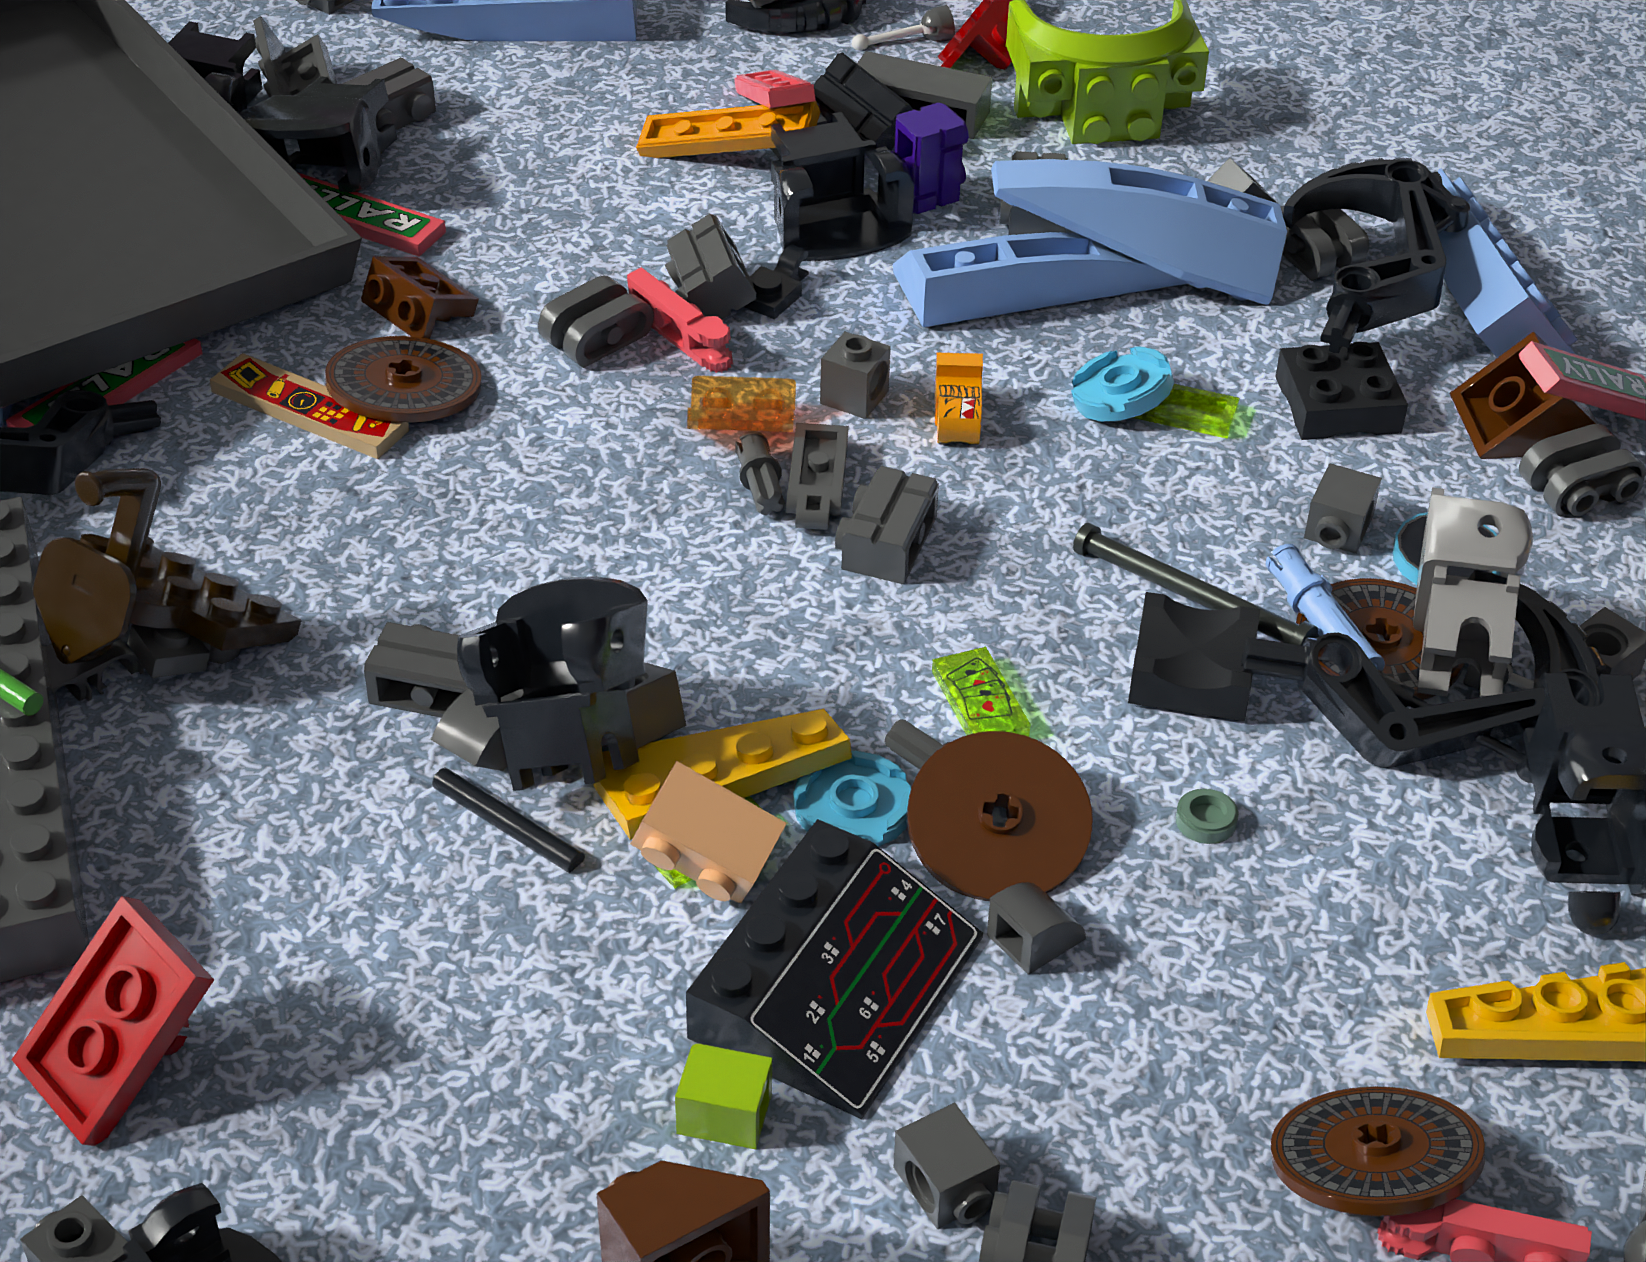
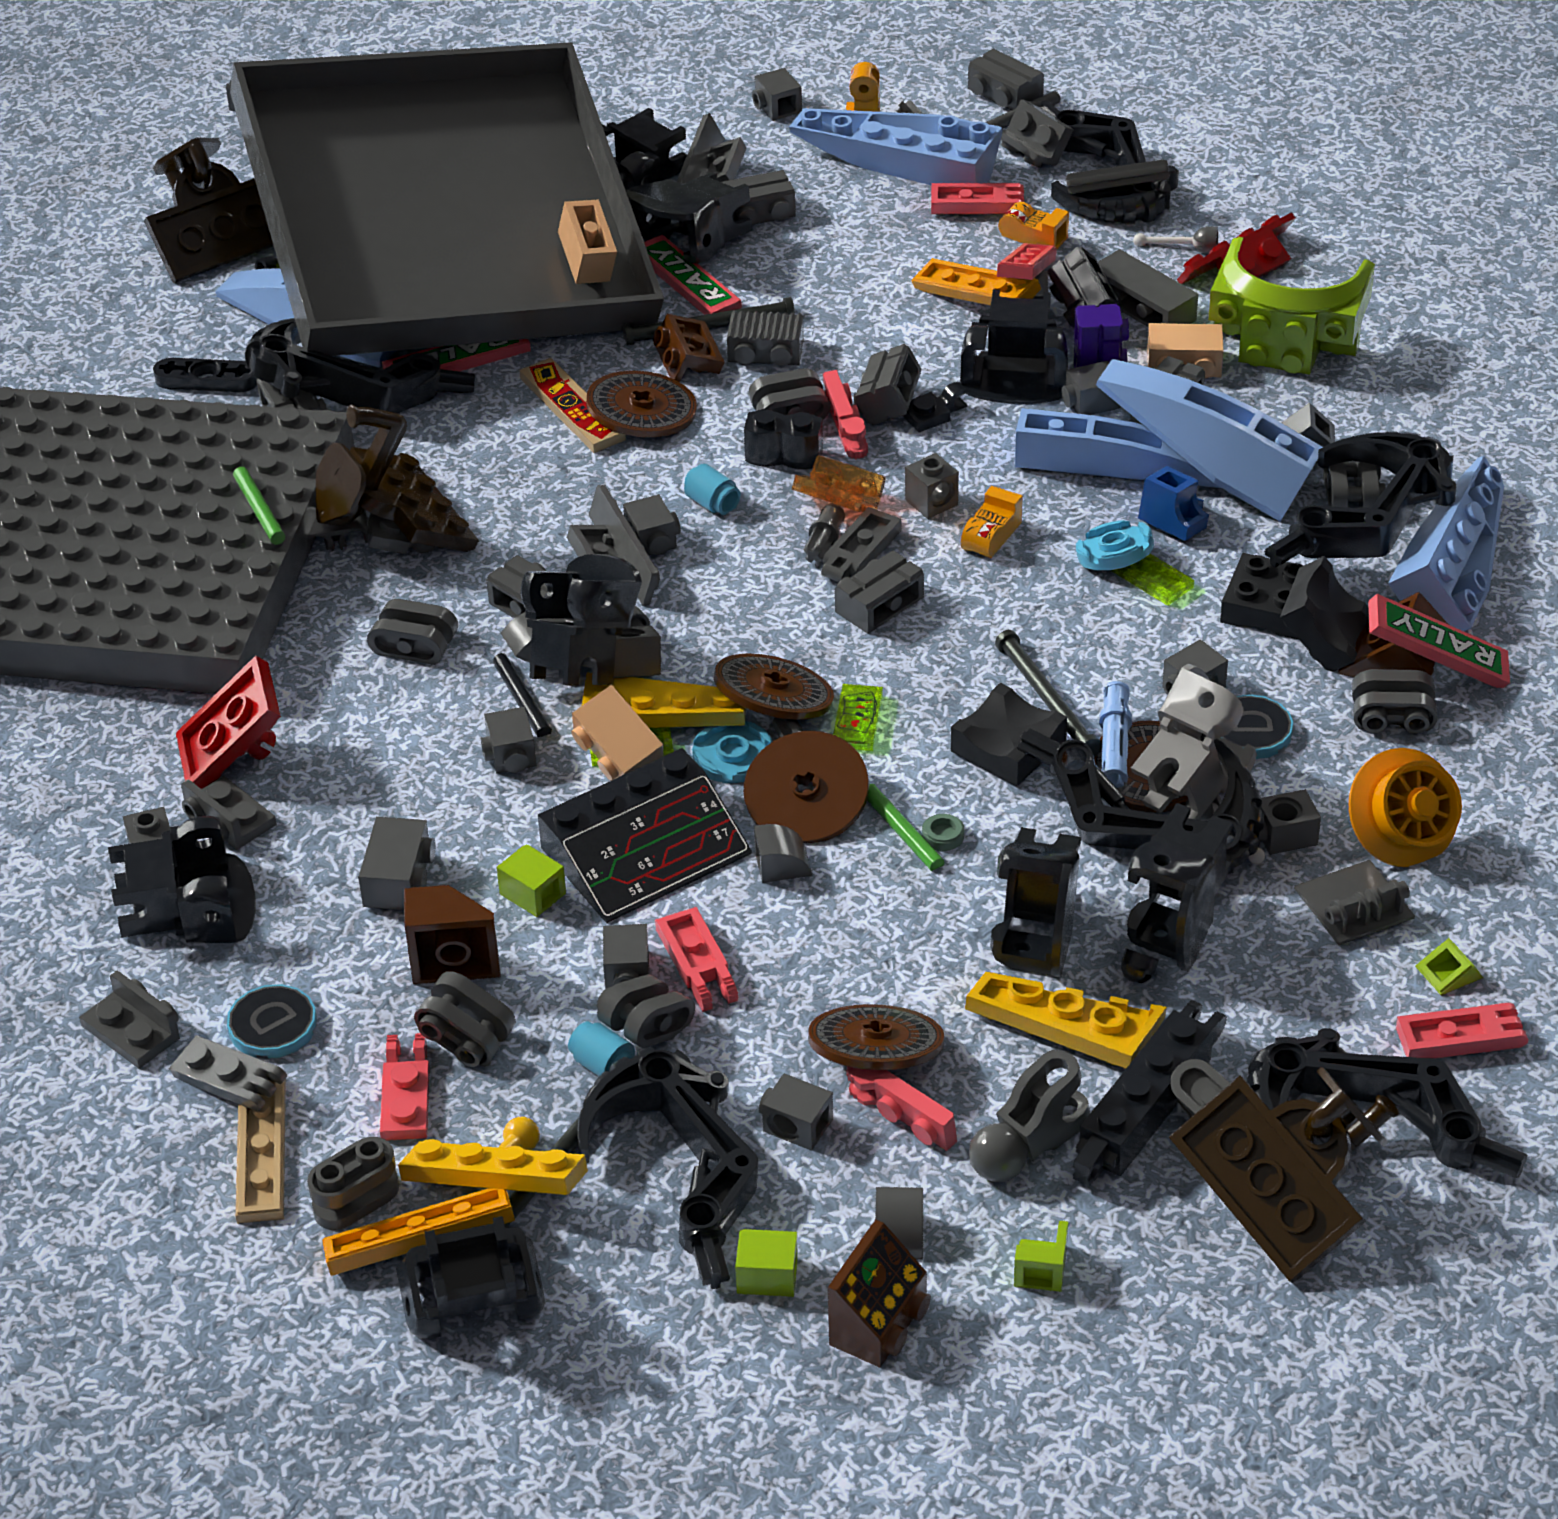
camera: 30 degrees right, 0 degrees up
(168, 1152) = (239, 813): none -> dark grey bracket
(226, 189) = (587, 241): none -> light nougat brick
(294, 778) = (413, 631): none -> dark grey brick
(484, 559) = (614, 537): none -> dark grey bracket
(506, 216) = (712, 320): none -> pearl dark grey bar
(510, 1149) = (395, 861): none -> dark grey brick
(511, 256) = (765, 338): none -> dark grey brick
(532, 529) = (653, 524): none -> dark grey brick
(545, 893) = (509, 741): none -> dark grey brick
(577, 459) = (711, 489): none -> medium azure brick
(628, 370) = (783, 439): none -> black brick
(643, 40) = (975, 197): none -> coral hinge
(735, 54) = (1035, 226): none -> light orange leg
(855, 692) = (773, 686): none -> piece
(950, 211) = (1083, 393): none -> dark grey brick
(1003, 134) = (1187, 342): none -> light nougat brick
(1037, 1123) = (696, 955): none -> coral hinge
(1152, 317) = (1172, 504): none -> blue brick
(1163, 832) = (904, 828): none -> bright green bar
(1436, 393) = (1324, 615): none -> black brick
(1449, 842) = (1038, 889): none -> black piece

